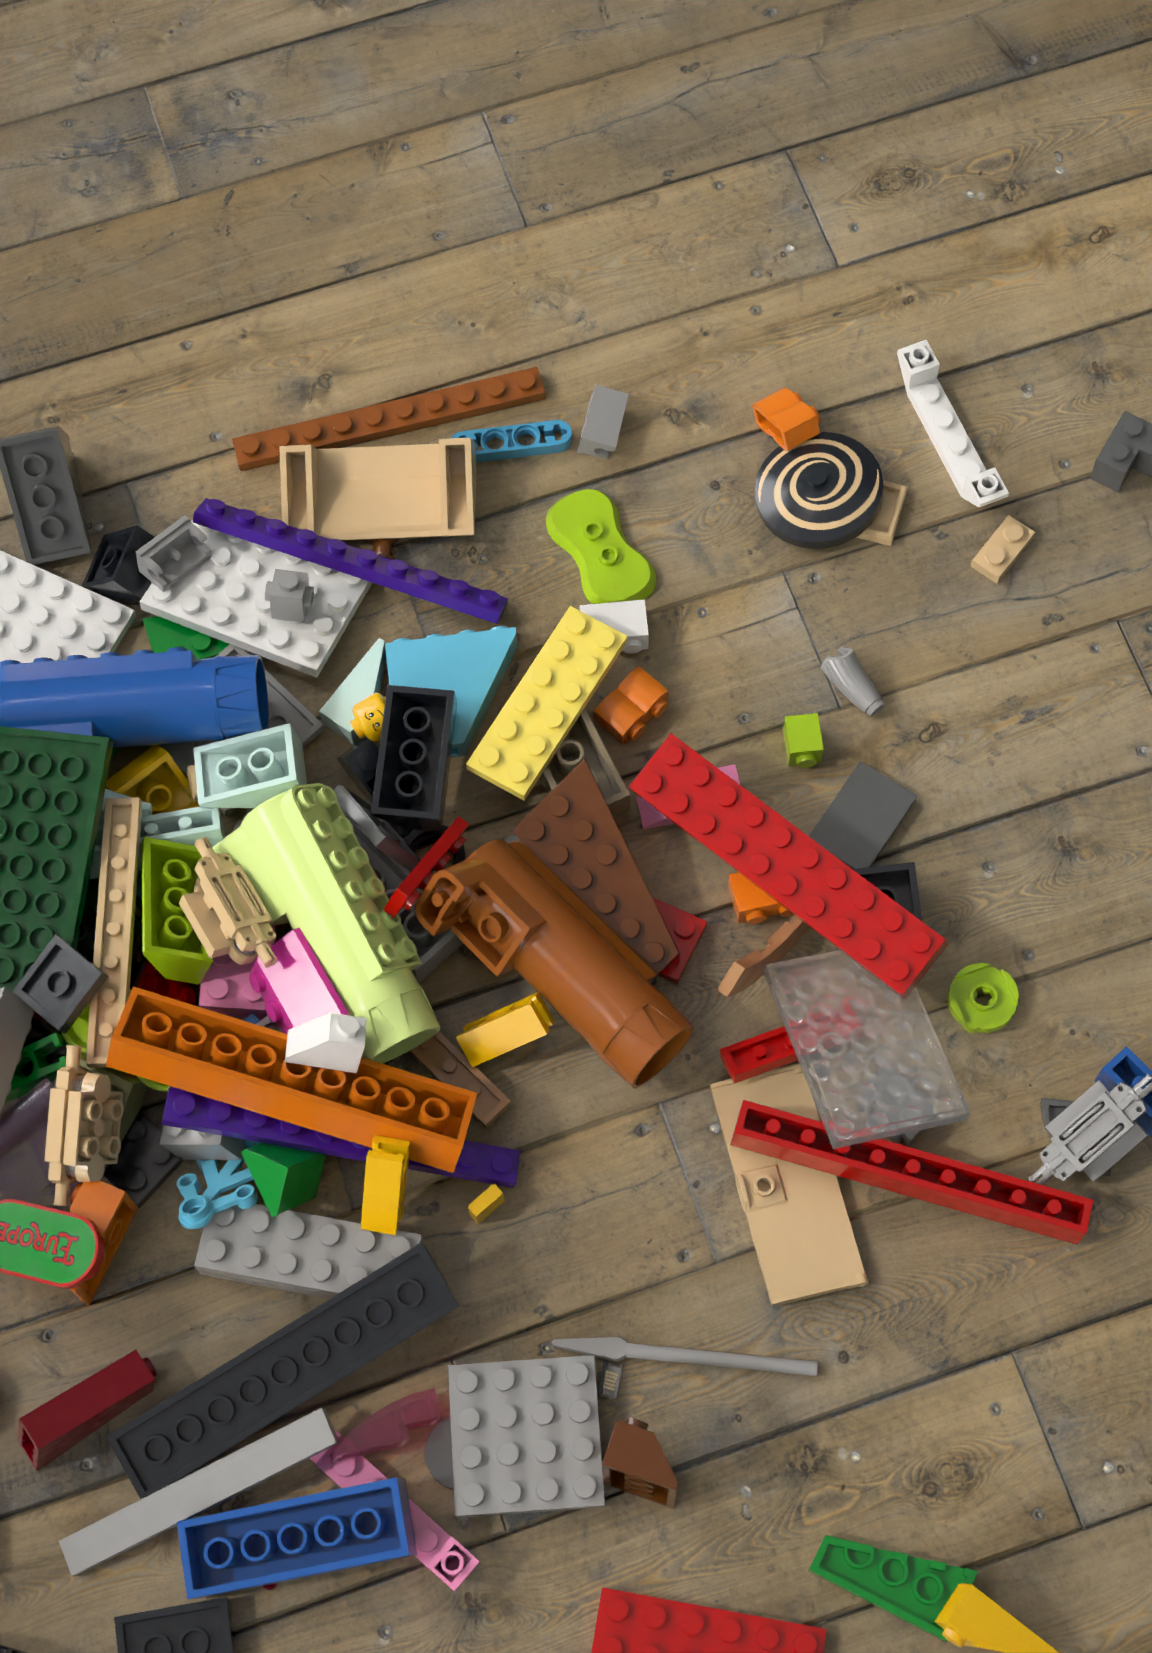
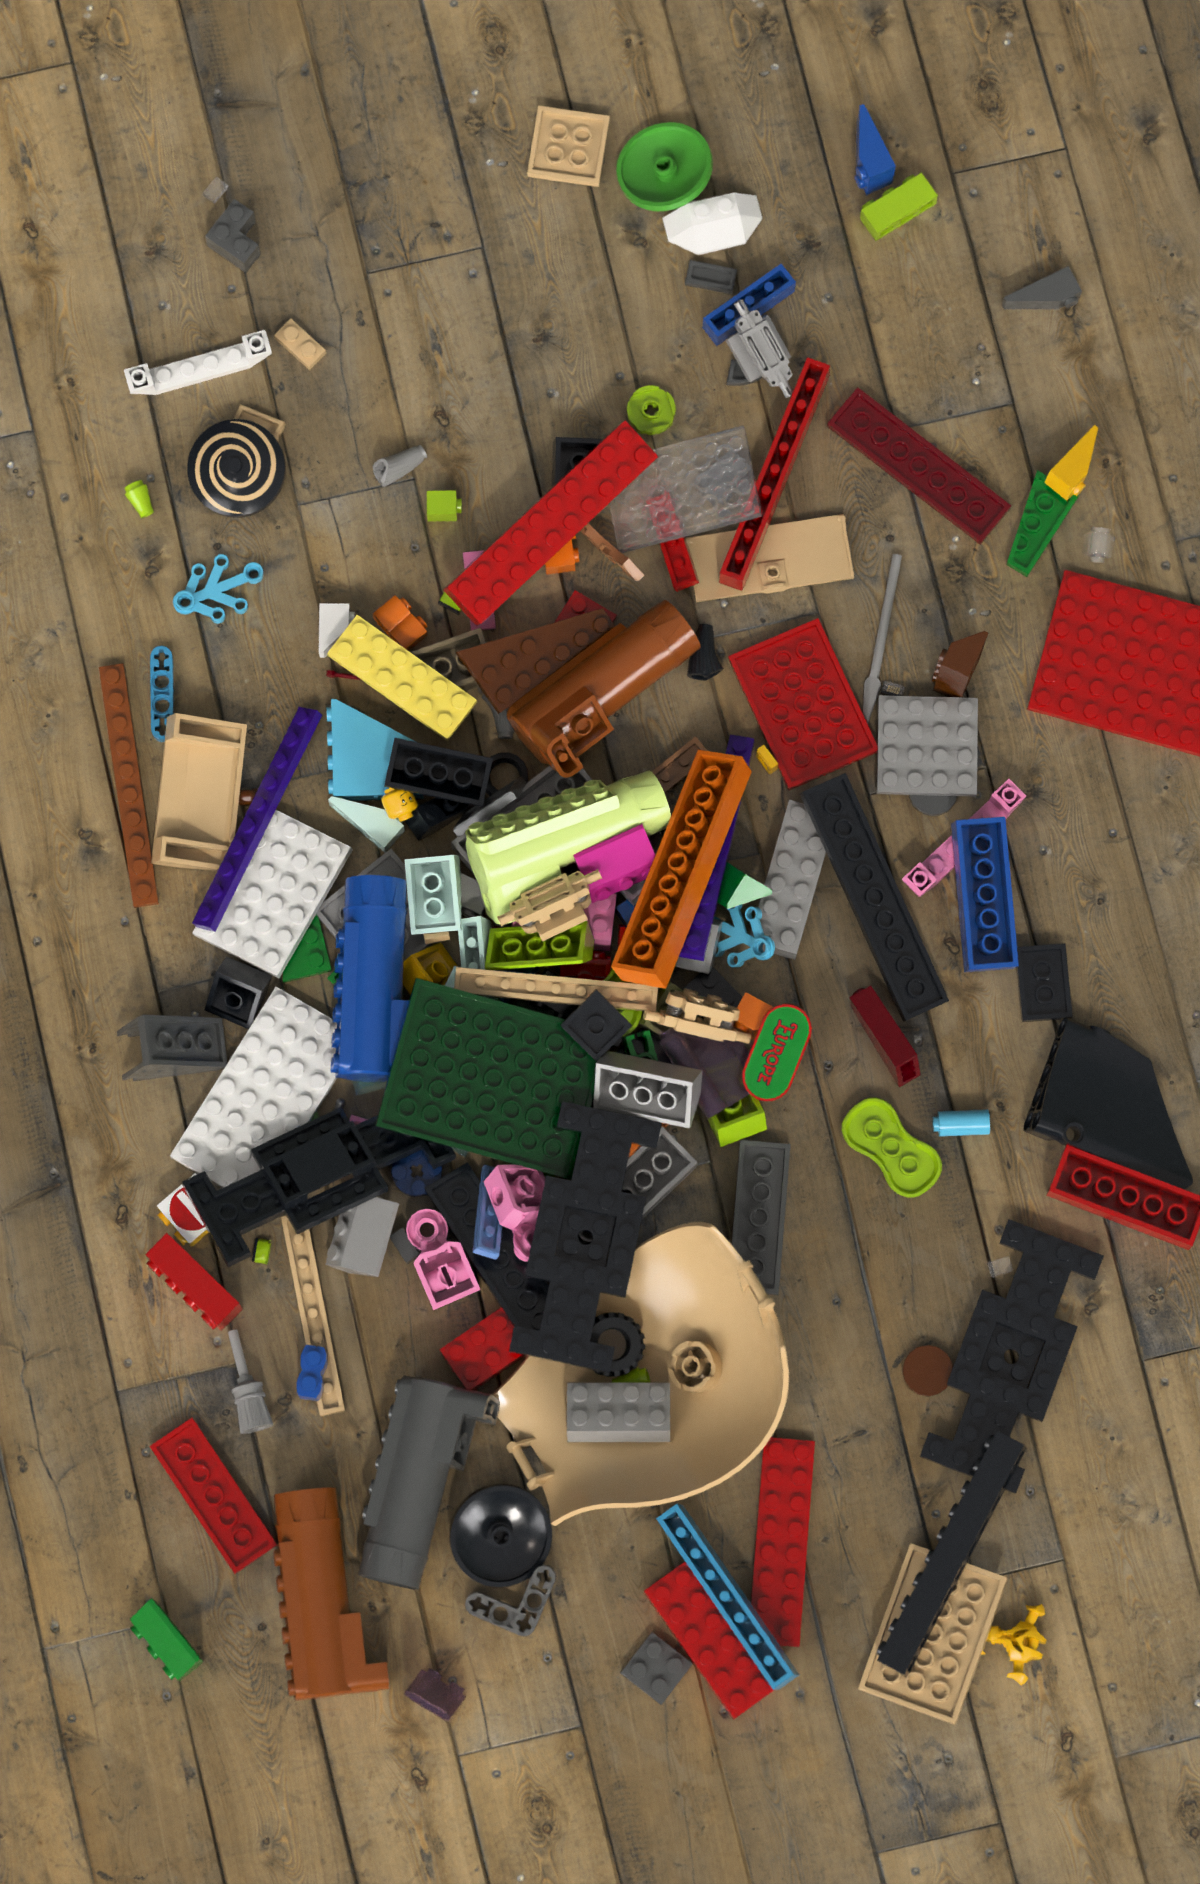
camera: 90 degrees left, 10 degrees up
(173, 553) = (243, 945): light grey hinge -> none
(199, 1492) = (948, 958): light grey tile -> none
(289, 595) = (291, 858): light grey brick -> none
(328, 1042) = (662, 837): white slope -> none
(385, 1185) = (758, 815): yellow piece -> none
(390, 1426) = (914, 832): clear pink slope -> none
(435, 859) = (529, 768): red plate -> none
(505, 1029) = (647, 731): yellow piece -> none
(574, 1250) = (803, 704): none -> red plate
(591, 532) = (281, 629): lime plate -> none
(602, 422) = (156, 622): light grey hinge -> none
(622, 1104) = (704, 662): none -> black piece
(655, 485) = (214, 590): none -> medium azure plant
(763, 385) = (139, 497): none -> lime cone
(787, 418) = (174, 483): orange brick -> none
(863, 817) = (506, 474): dark grey tile -> none
(957, 1390) = (919, 466): none -> dark red plate

